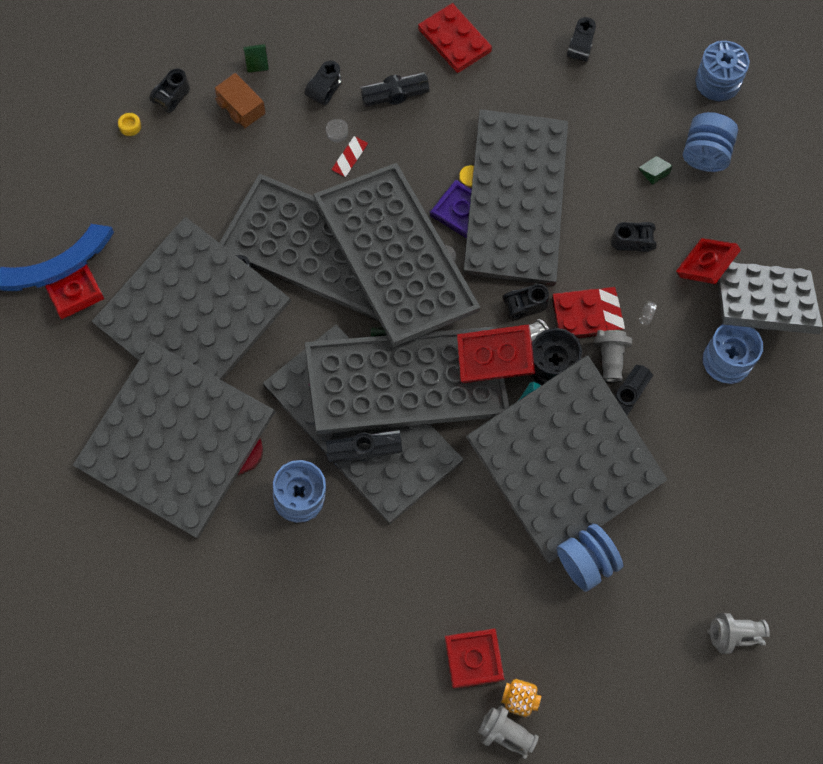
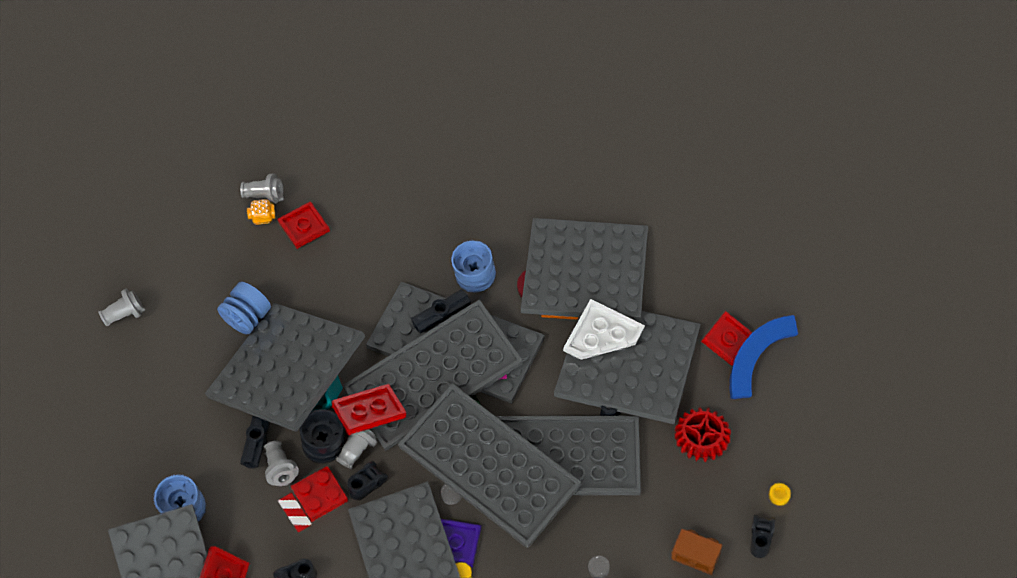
camera: 160 degrees right, 10 degrees down
(164, 192) = (687, 428): none -> red gear
(204, 337) = (601, 332): none -> white plate
(349, 156) = (576, 550): sticker -> none
(647, 312) = (261, 514): clear tile -> none

